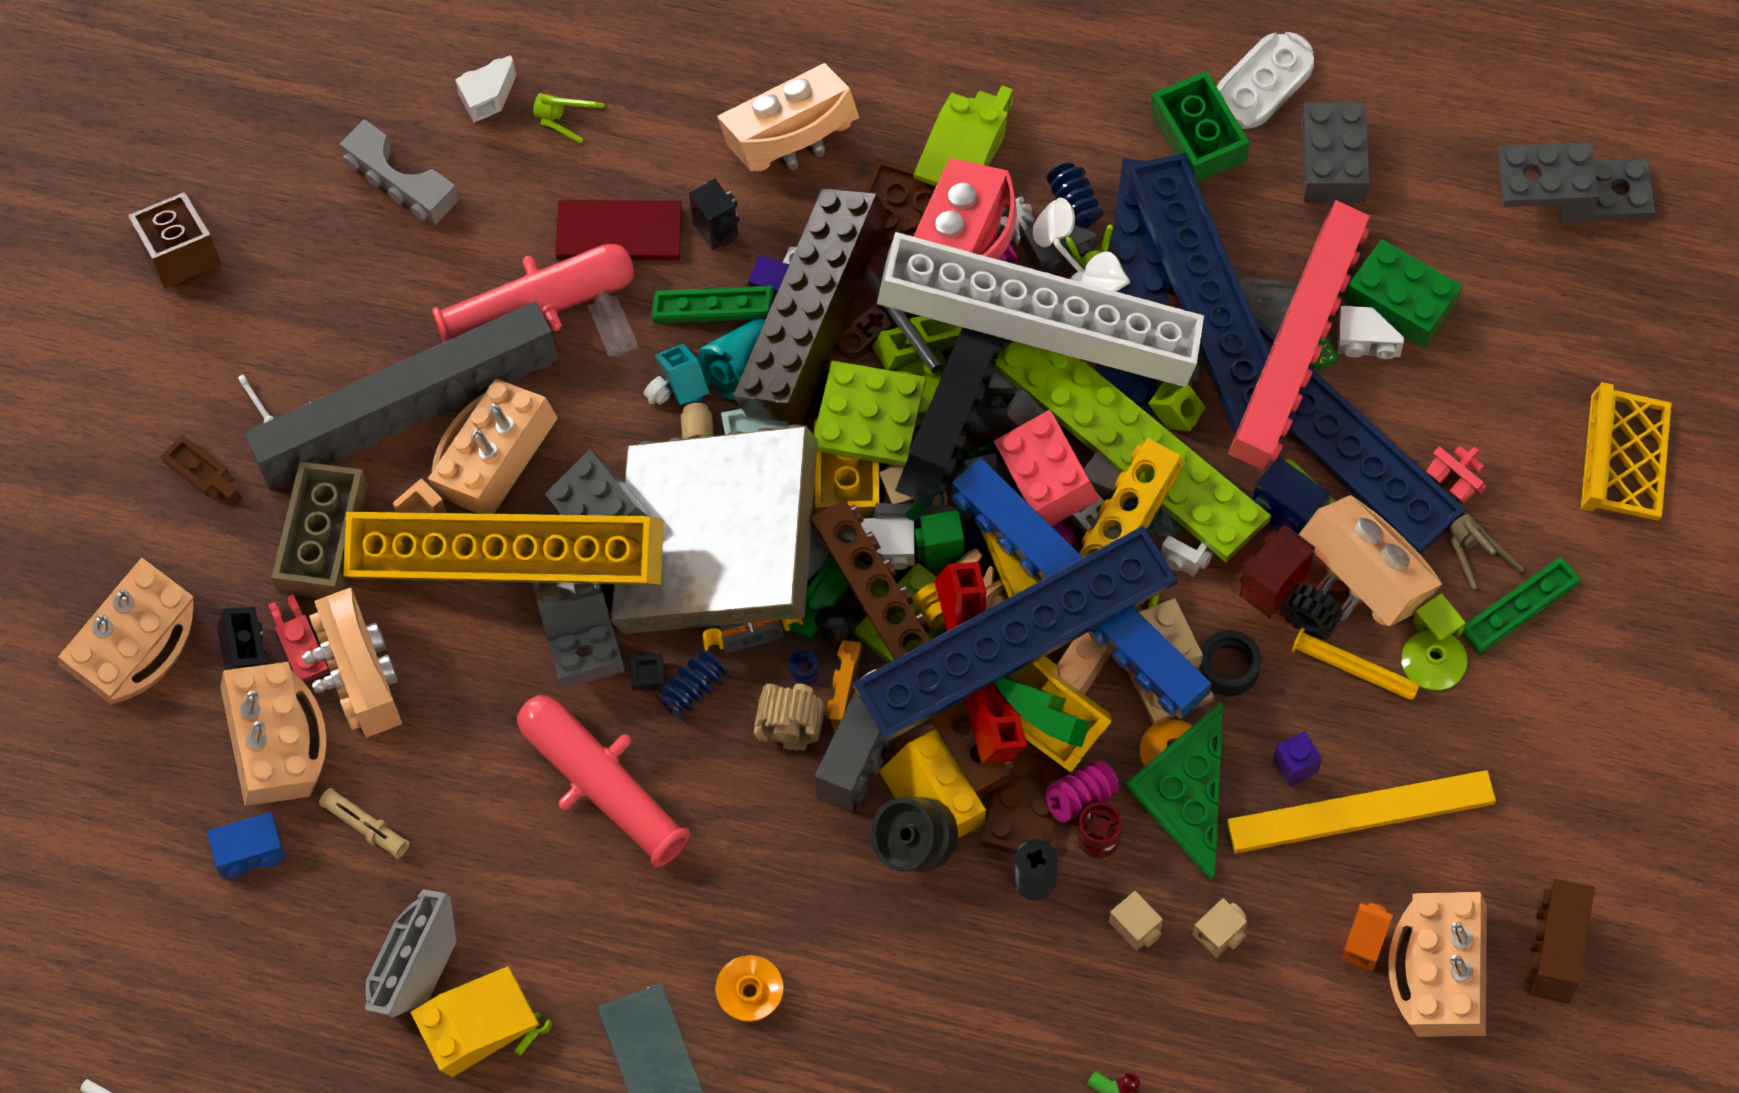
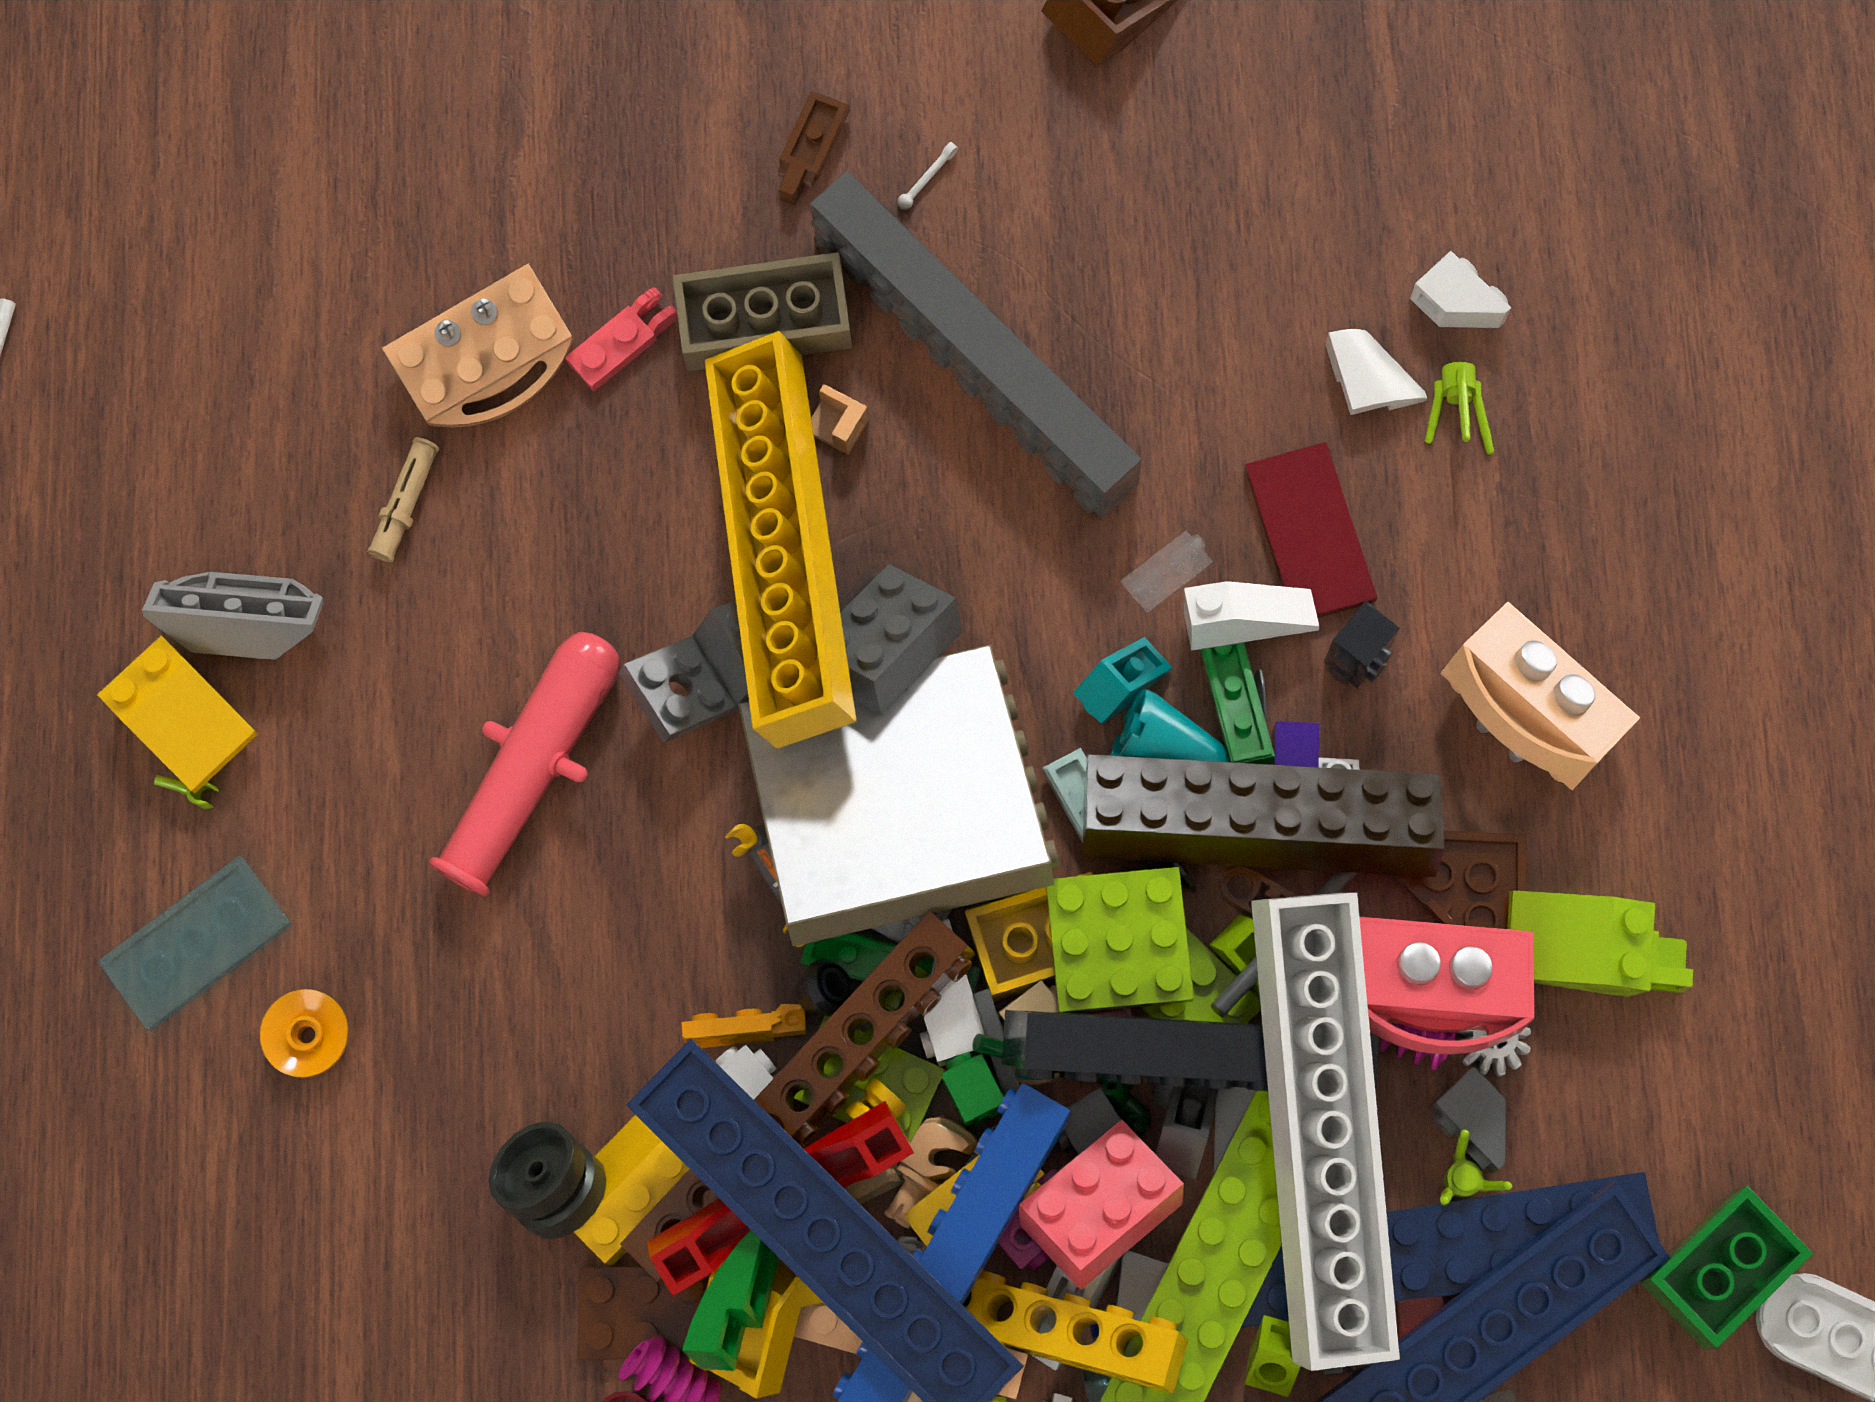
camera: 75 degrees right, 10 degrees up
(130, 634) = (564, 143): light nougat piece -> none
(241, 638) = (585, 274): black brick -> none
(246, 845) = (337, 373): blue brick -> none
(354, 664) = (597, 416): light nougat piece -> none
(425, 193) = (1314, 188): light grey arch -> none
(490, 446) = (938, 474): light nougat piece -> none
(518, 161) = (1369, 373): none -> white slope
(552, 288) = (1173, 460): coral piece -> none
(647, 671) = (694, 772): black plate -> none
(658, 391) = (1087, 656): white plate -> none
(664, 281) = (1245, 612): none -> white slope
(691, 683) = (683, 833): dark blue piece -> none
(696, 421) = (1051, 724): tan brick -> none
(789, 716) = (671, 970): tan brick -> none
(796, 659) = (748, 958): clear blue bush -> none
(851, 759) = (618, 1063): dark grey brick -> none
(1035, 869) = (536, 1336): black piece -> none
(1057, 223) = (1416, 1189): white plant -> none
(1070, 184) = (1556, 1120): dark blue piece -> none

